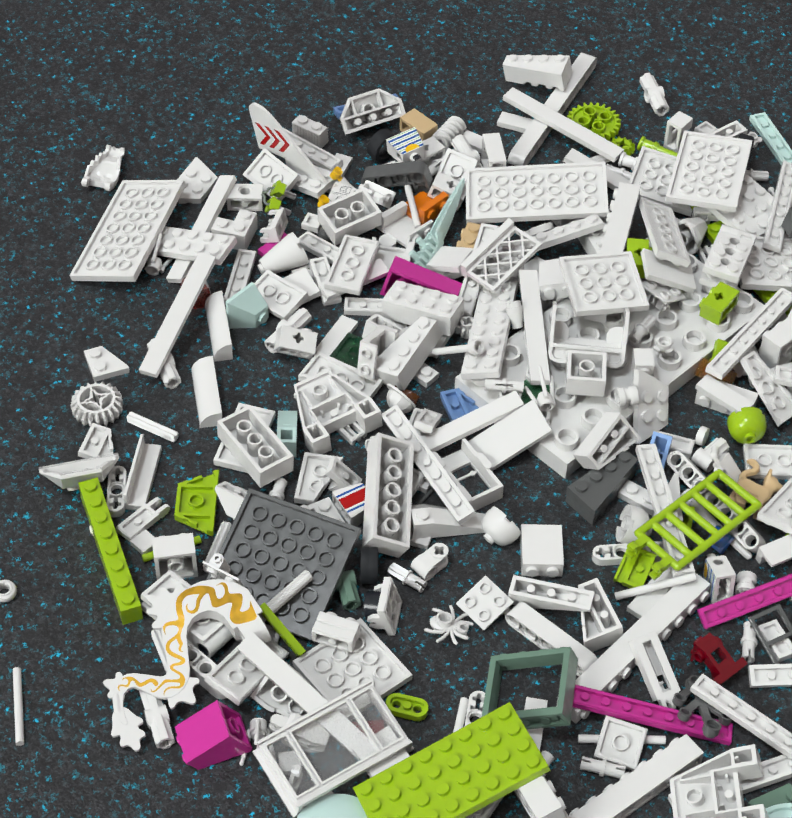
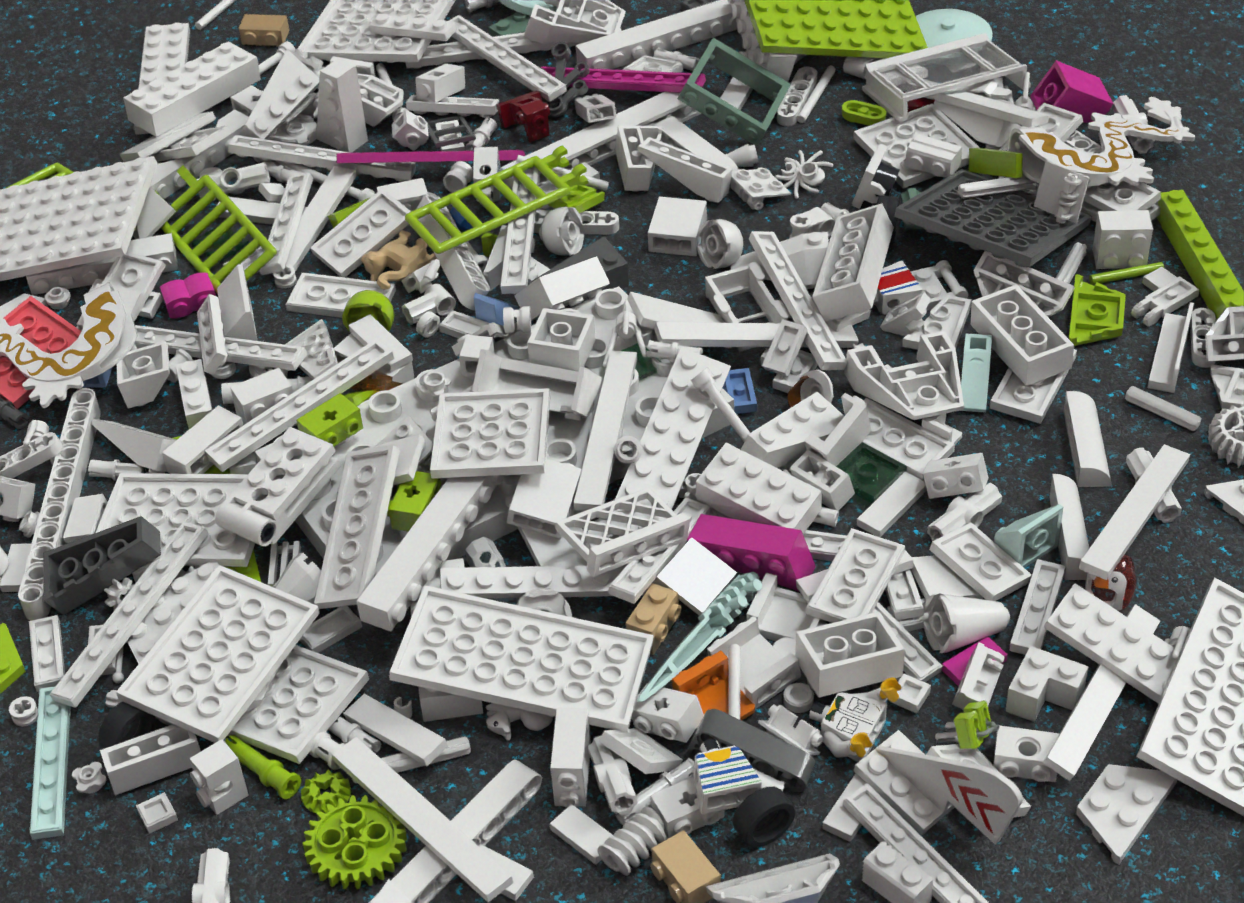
camera: 165 degrees left, 5 degrees down
(506, 637) = (744, 156): none -> white cone

